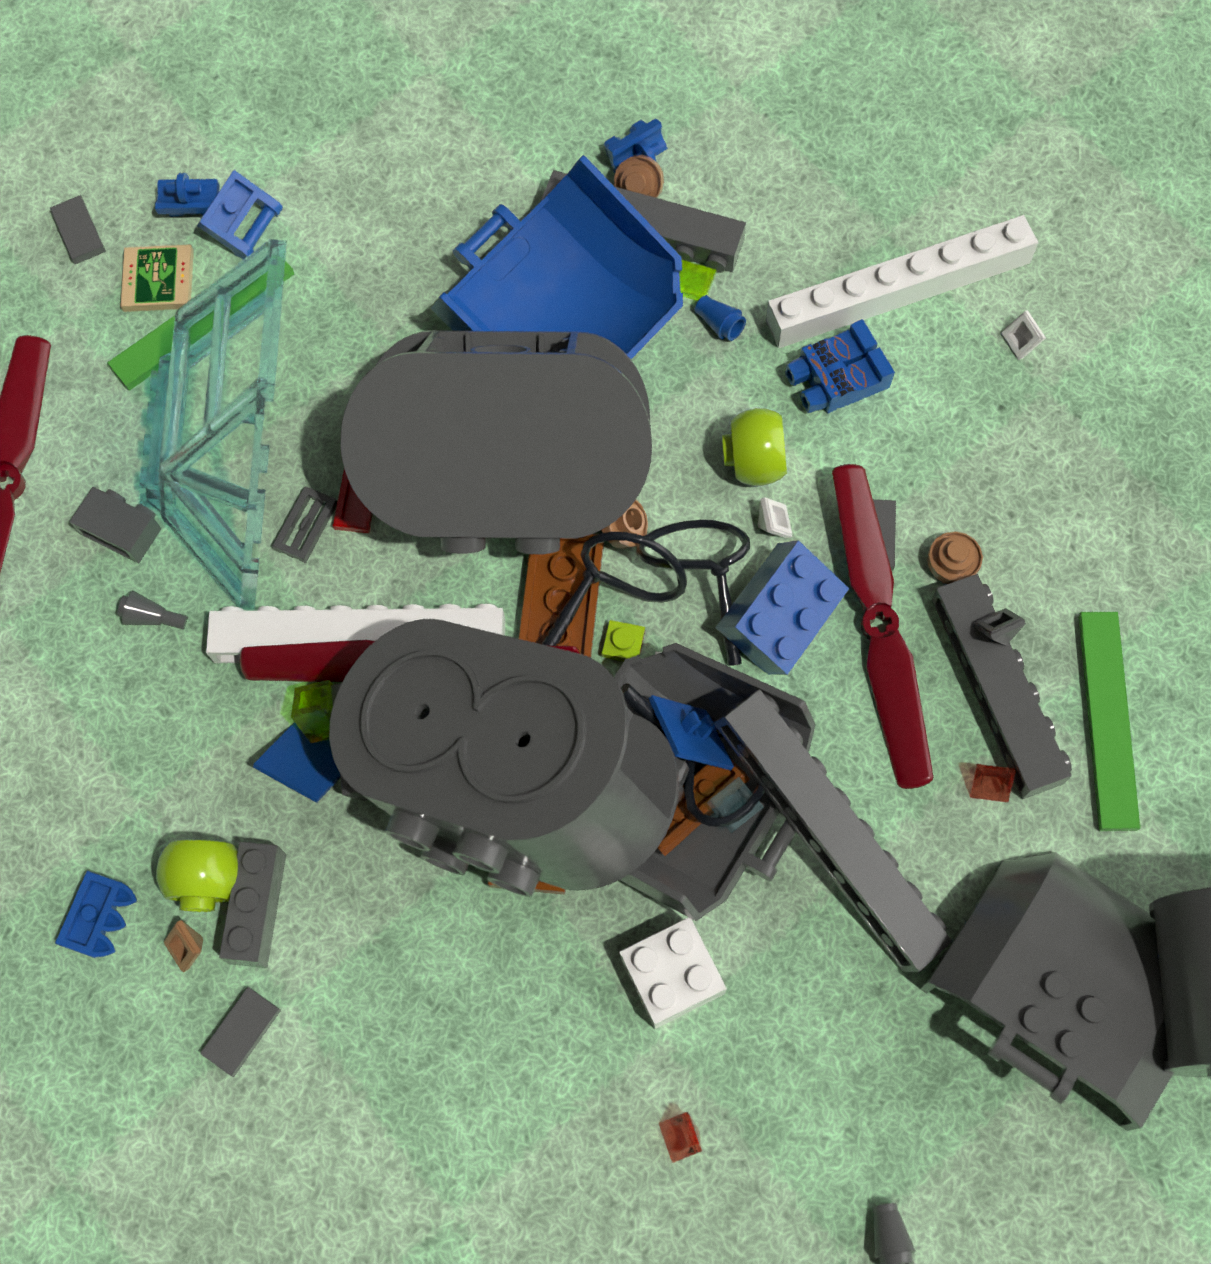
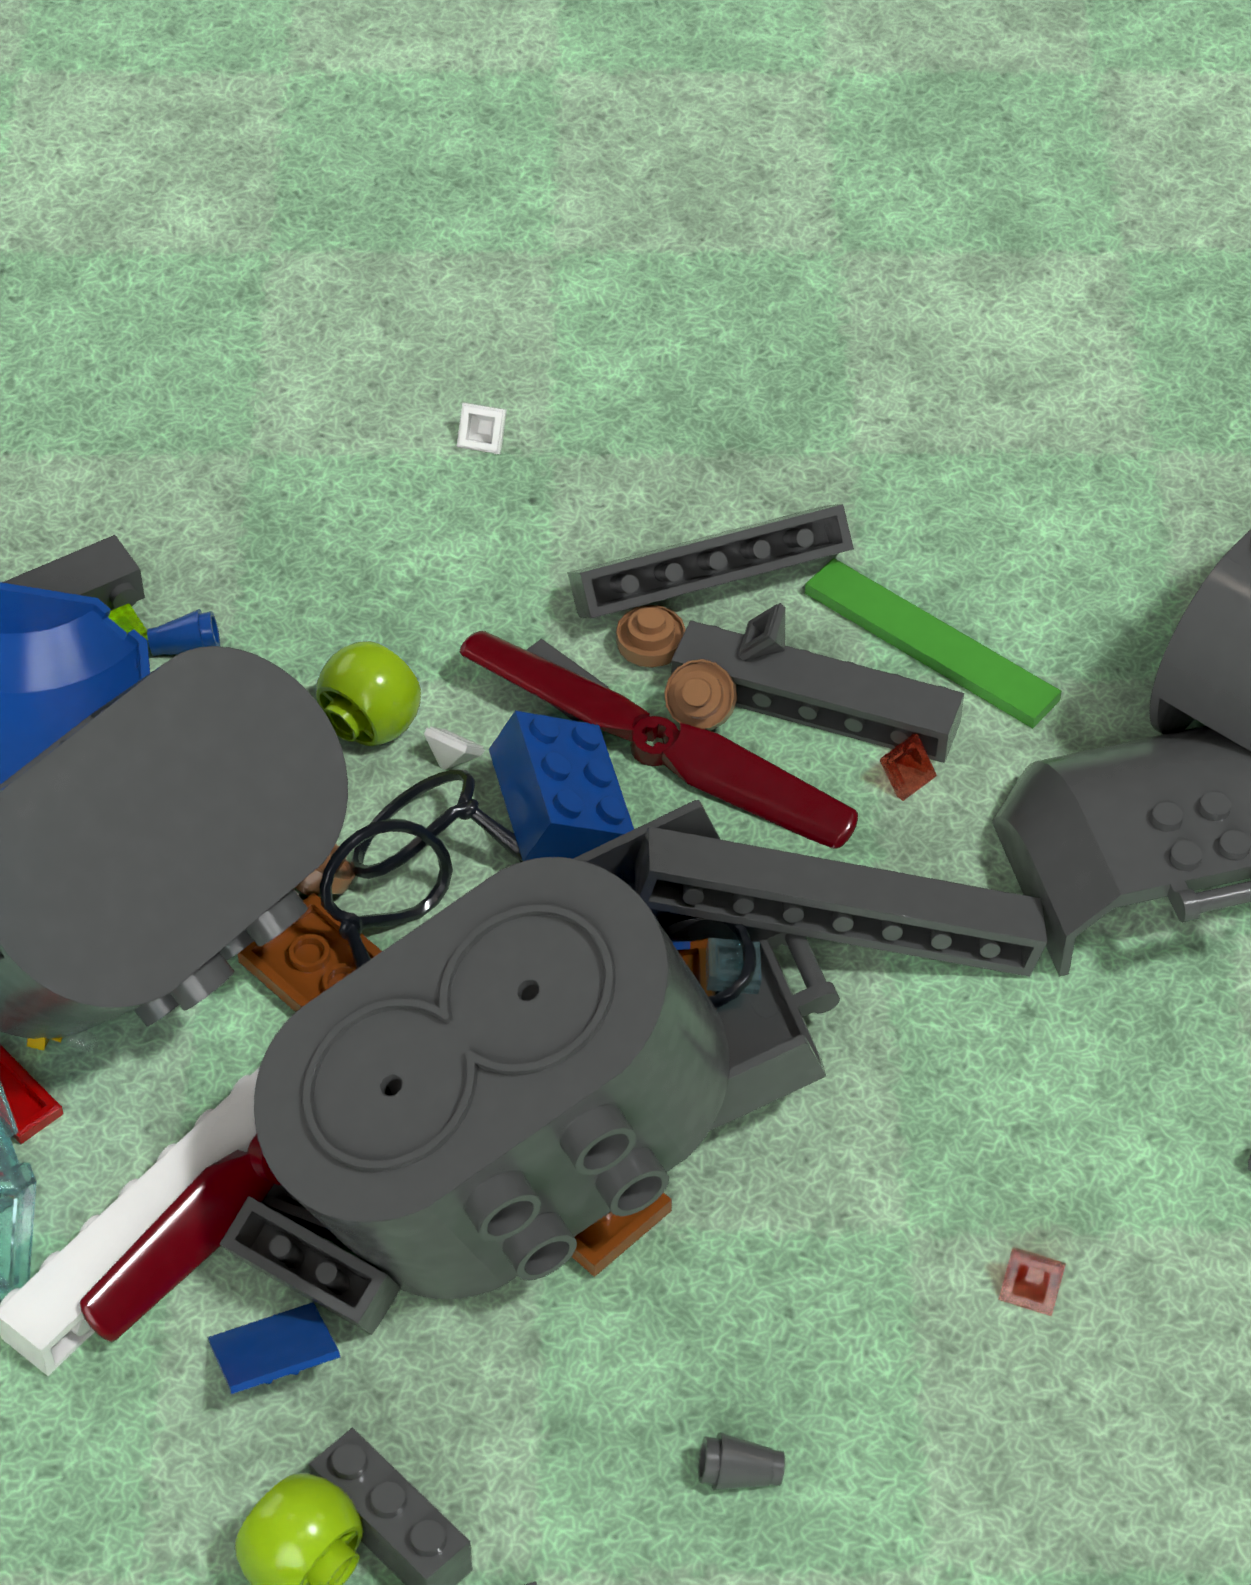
camera: 55 degrees left, 20 degrees down
(313, 710) = (232, 1286): clear neon green brick -> none
(430, 1061) = (737, 1463): none -> dark grey cone
(672, 972) = (852, 1162): white brick -> none
(841, 370) = (357, 580): blue hips -> none
(901, 281) = (317, 476): white brick -> none
(929, 624) = (700, 694): none -> medium nougat plate
(1041, 547) = (710, 561): none -> dark grey brick

